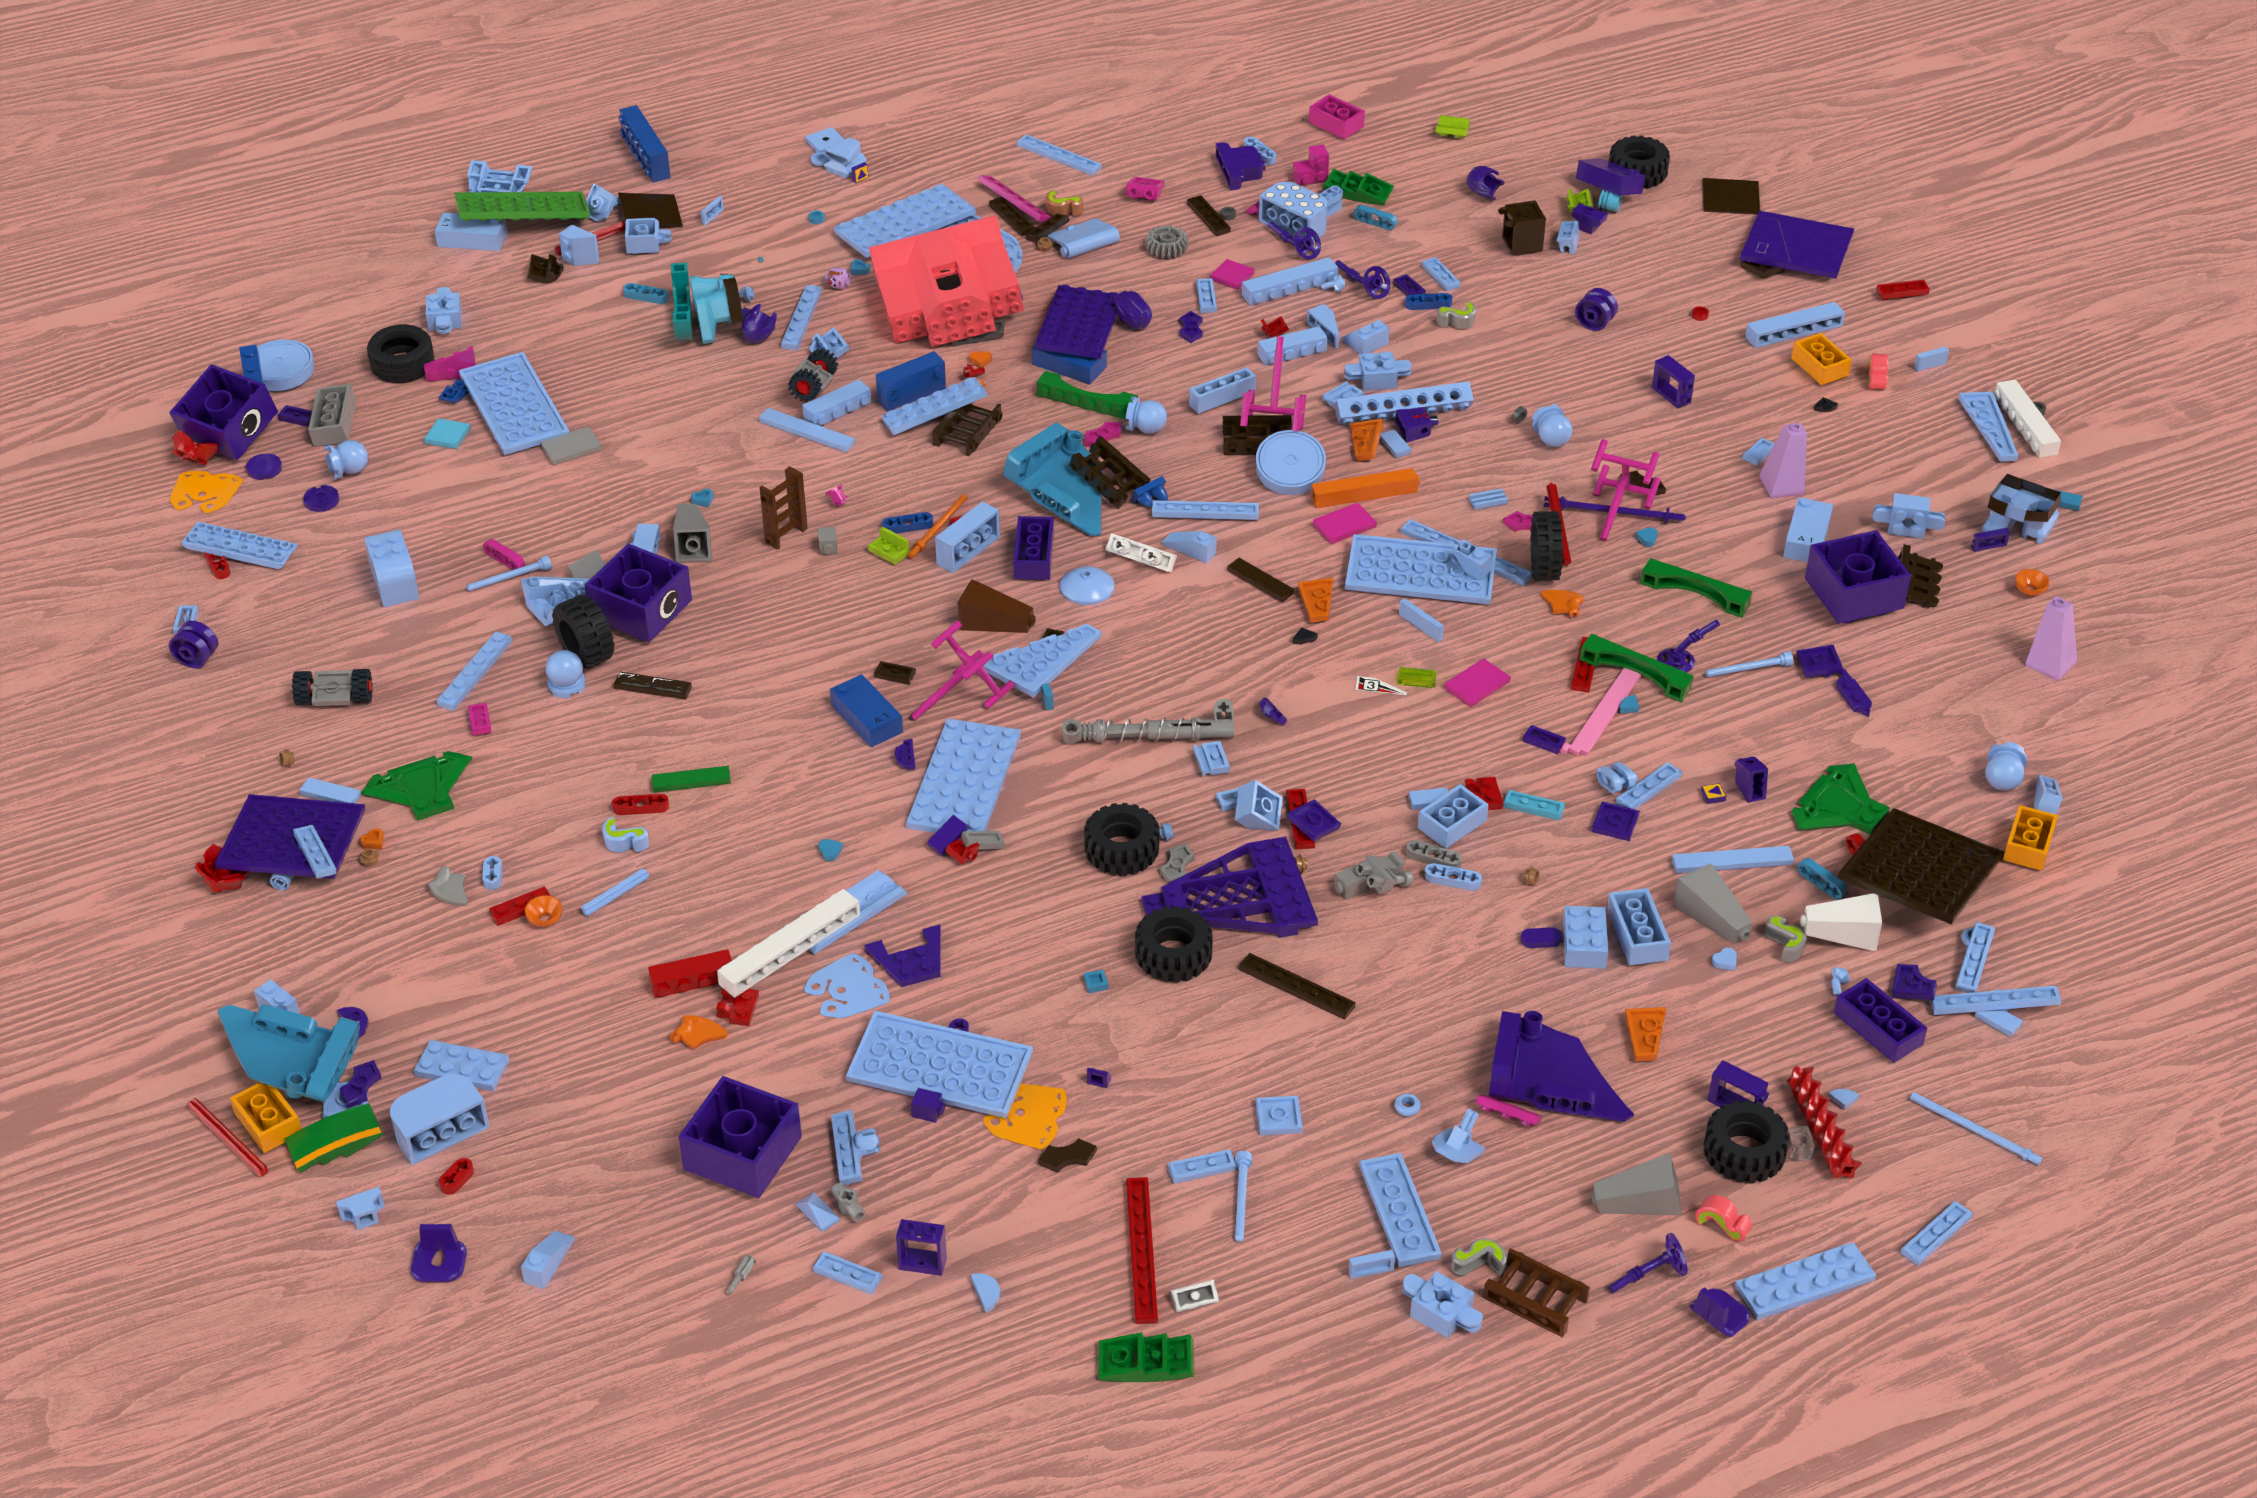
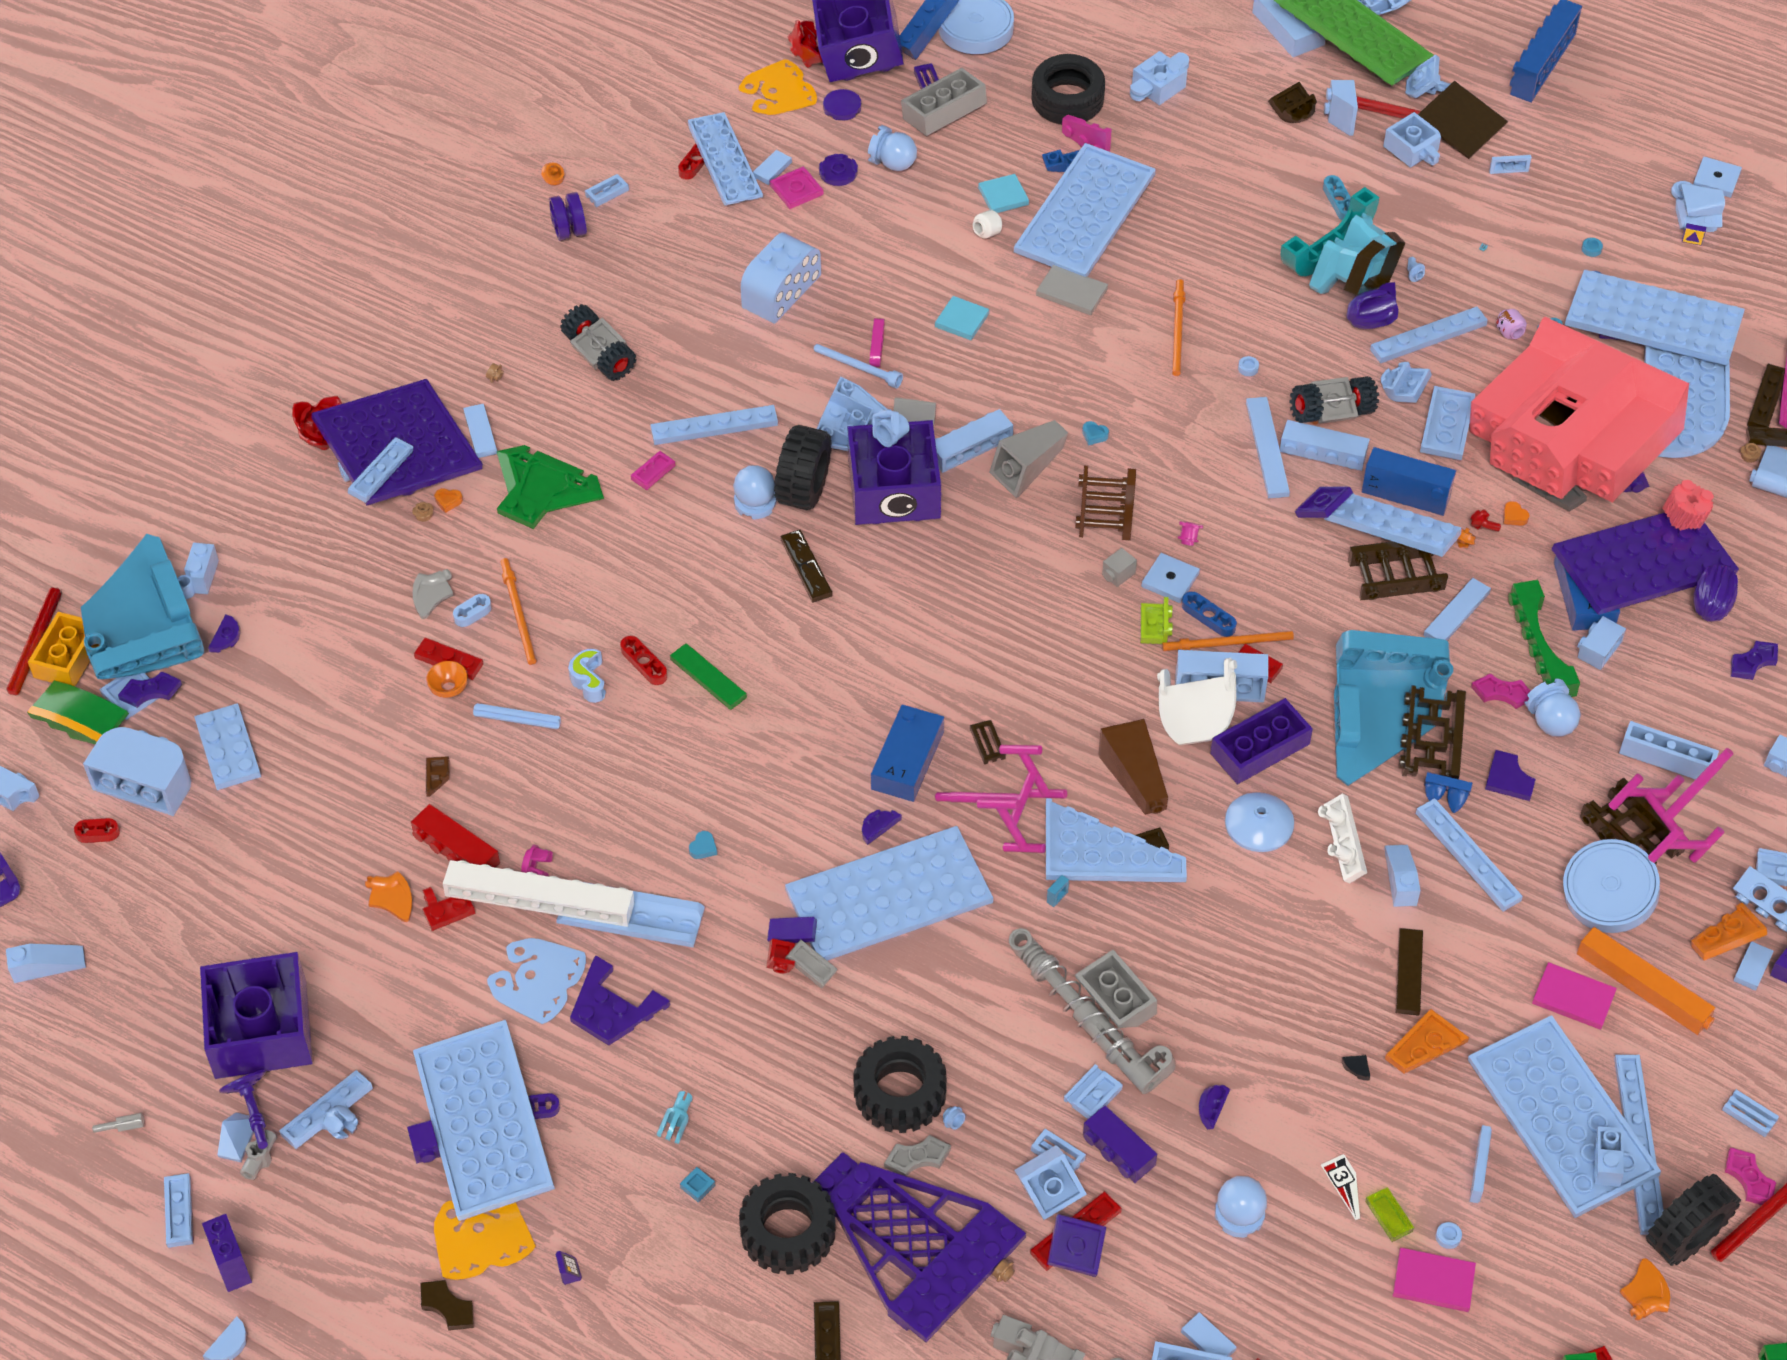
camera: 55 degrees right, 10 degrees up
(133, 637) = (552, 173): none -> orange hat
(276, 527) = (772, 167): none -> light blue tile
(310, 526) = (796, 187): none -> dark pink tile
(467, 452) = (987, 224): none -> white head
(487, 839) = (509, 579): none -> orange bar
(531, 507) = (962, 318): none -> medium azure tile
(616, 959) = (436, 773): none -> reddish brown tile
(618, 562) = (889, 430): none -> light blue piece
(640, 403) = (1179, 298): none -> orange bar
(732, 403) = (1248, 366): none -> light blue tile
(754, 932) = (532, 857): none -> dark pink piece
(785, 1180) = (245, 1087): none -> dark purple dish
(859, 525) = (1170, 577): none -> light blue tile
(880, 345) = (1447, 423): none -> light blue plate
(882, 425) = (1323, 502): none -> dark purple tile
(982, 558) = (1199, 708): none -> white piece
(1024, 417) = (1458, 610): none -> light blue tile
(1037, 965) = (677, 1117): none -> medium azure arm
(1065, 280) = (1688, 505): none -> coral brick
(1115, 375) = (1601, 642): none -> light blue piece
(1153, 701) = (1118, 991): none -> light grey slope
(1167, 466) = (1508, 778): none -> dark purple tile
(1260, 764) = (1119, 1144): none -> dark purple brick
(1356, 731) = (1241, 1206): none -> light blue tile
(1453, 661) = (1448, 1235): none -> light blue tile

